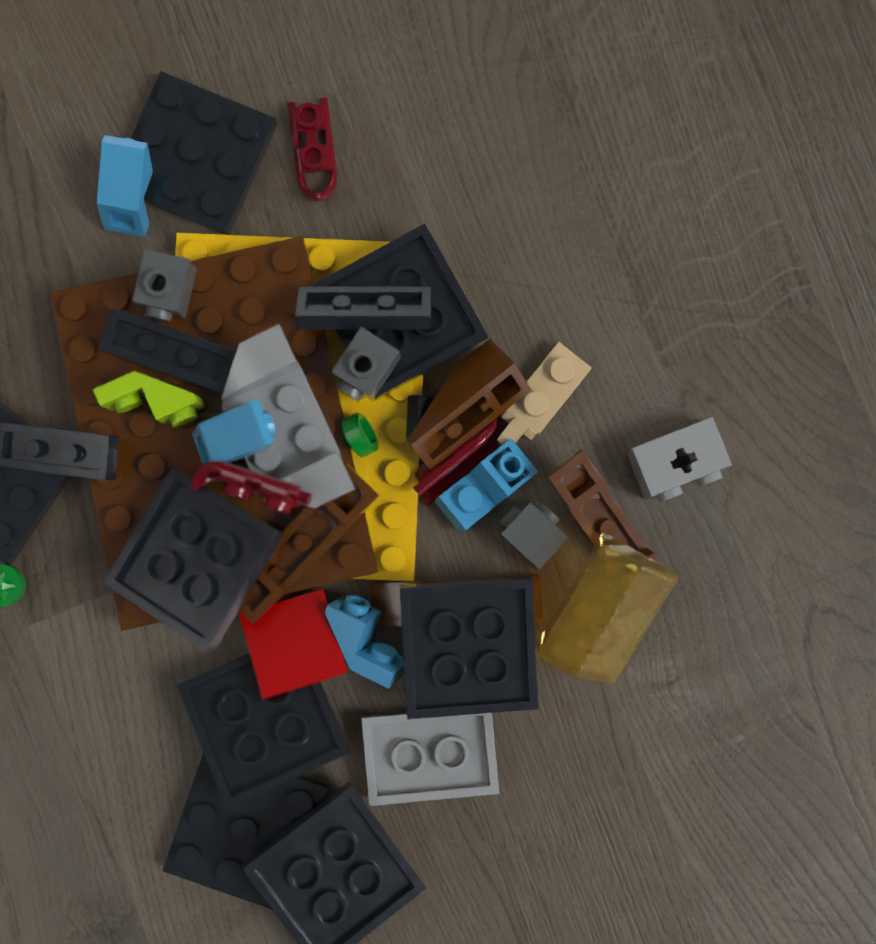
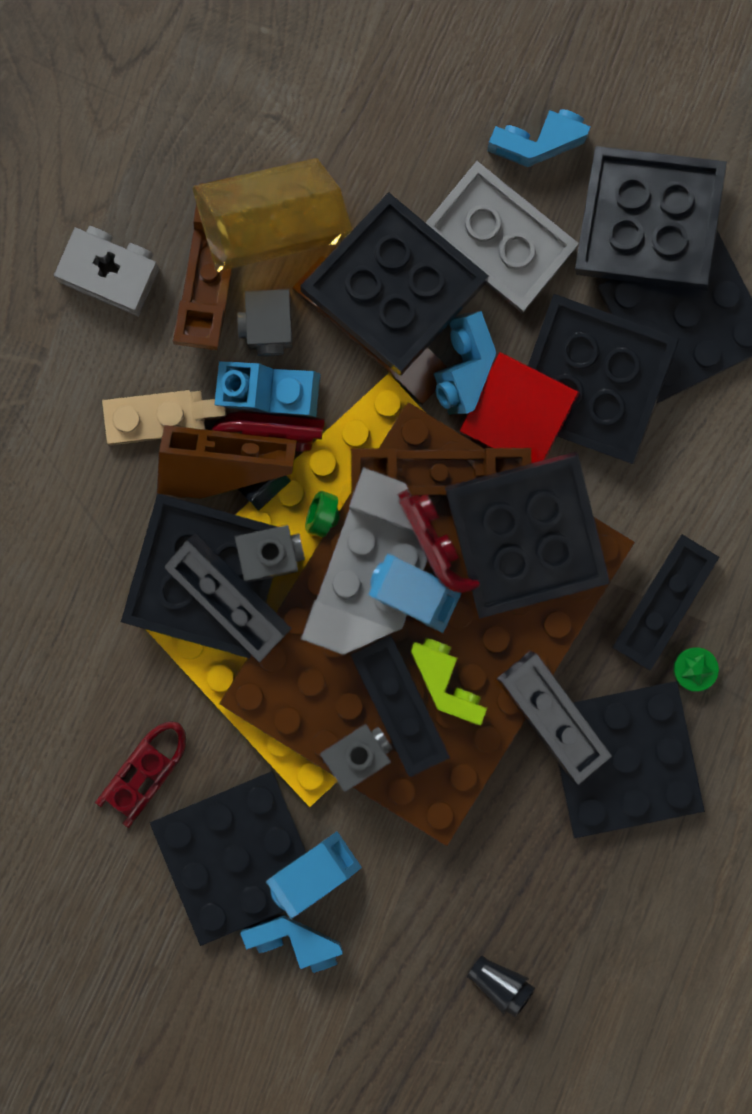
camera: 135 degrees left, 0 degrees up
(65, 611) = (665, 602): none -> black plate
(81, 141) = (309, 945): none -> dark azure slope
(461, 869) = (559, 134): none -> dark azure slope

